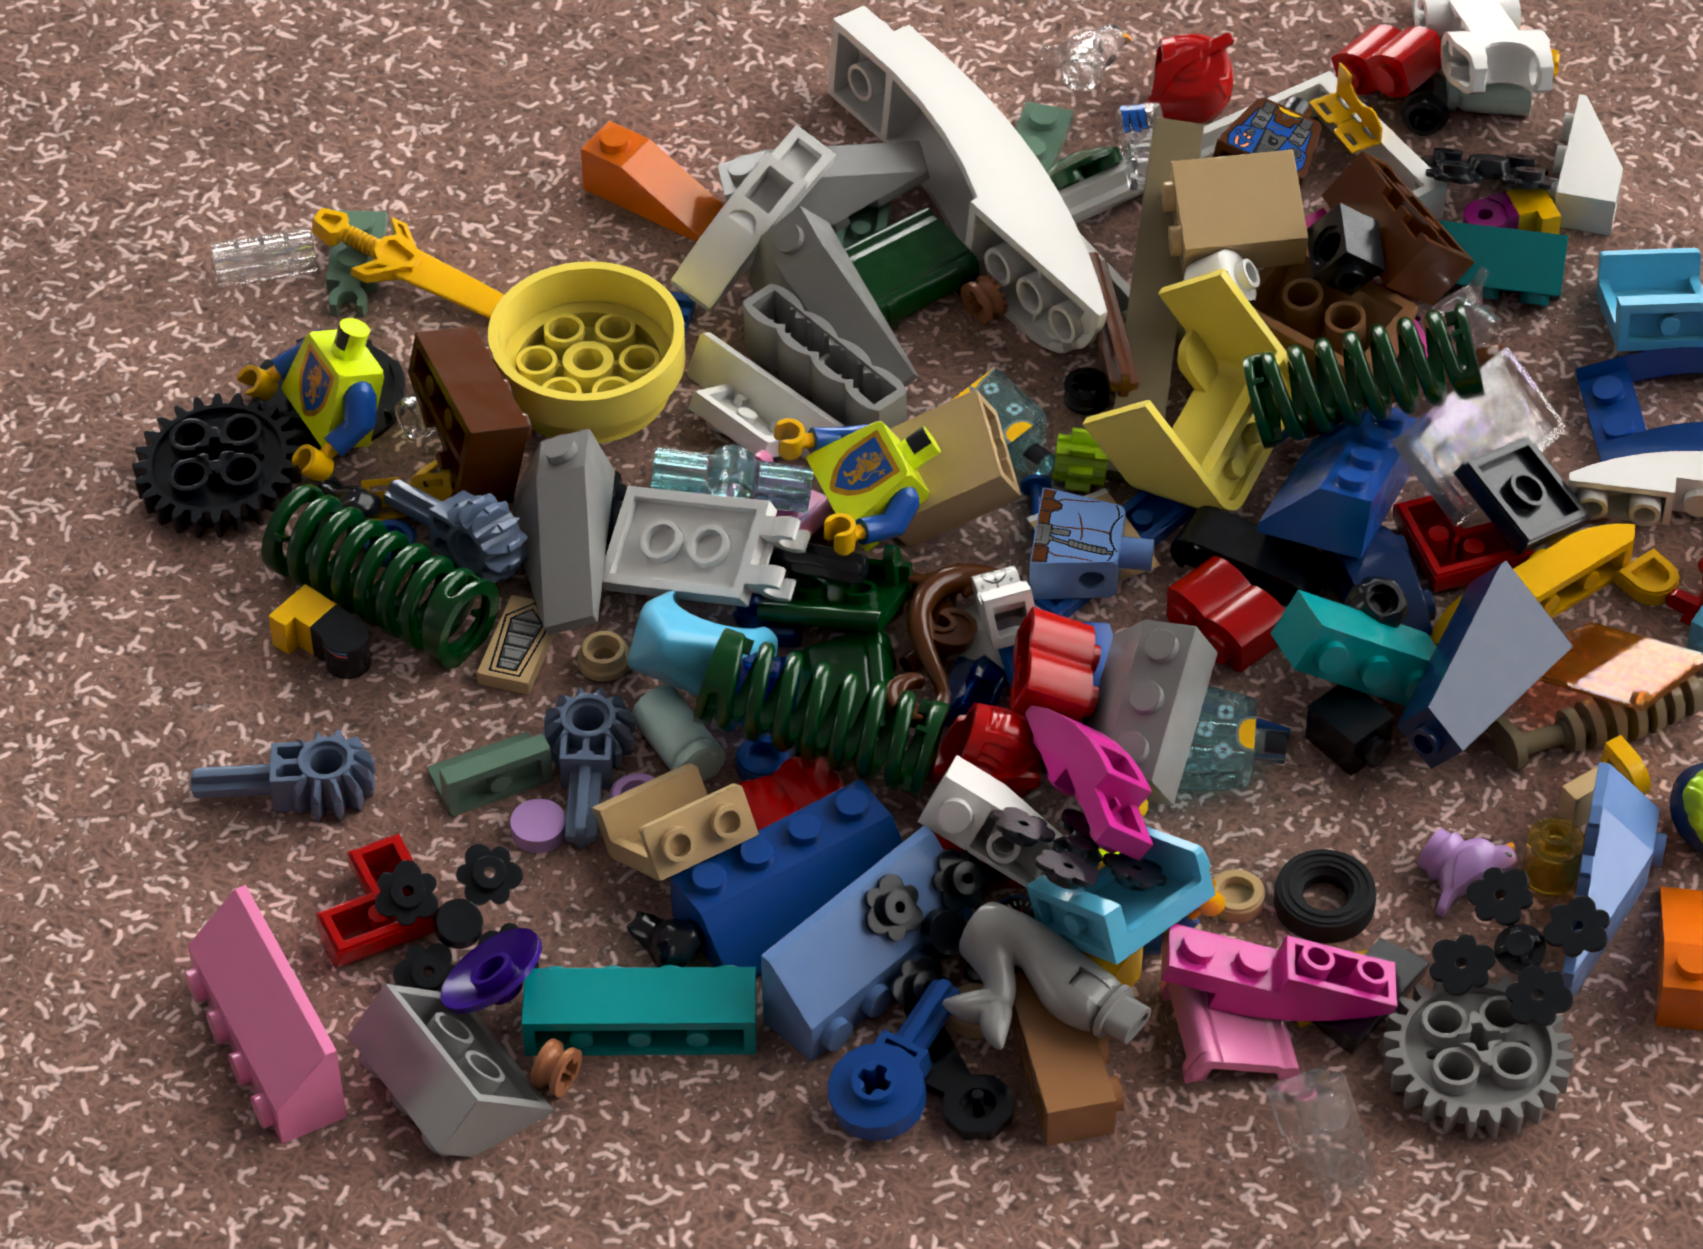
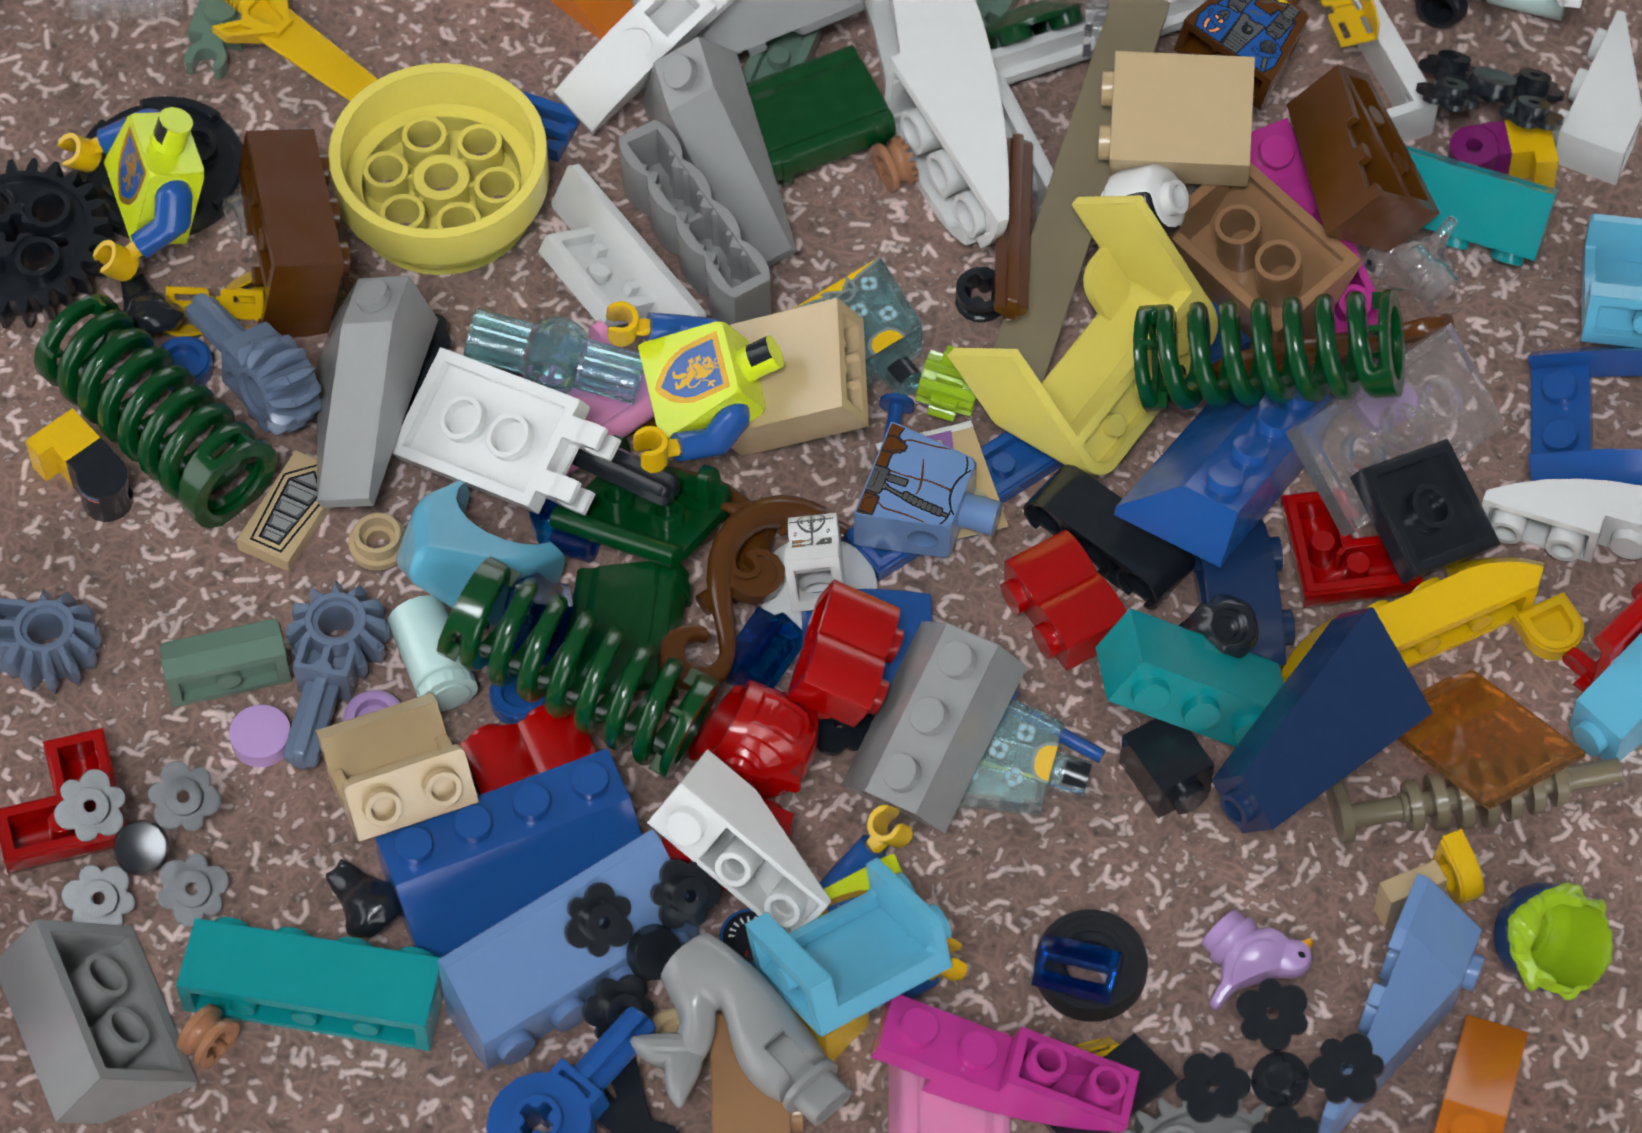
camera: 10 degrees right, 10 degrees up
(492, 971) = (159, 915): dark purple dish -> none
(1075, 857) = (806, 898): black plant -> none
(1099, 775) = (856, 804): dark pink slope -> none
(1242, 893) = (994, 947): tan tile -> none
(1319, 883) = (1081, 956): none -> clear blue piece
(1345, 249) = (1289, 185): black brick -> none
(1553, 855) = (1350, 963): clear yellow brick -> none

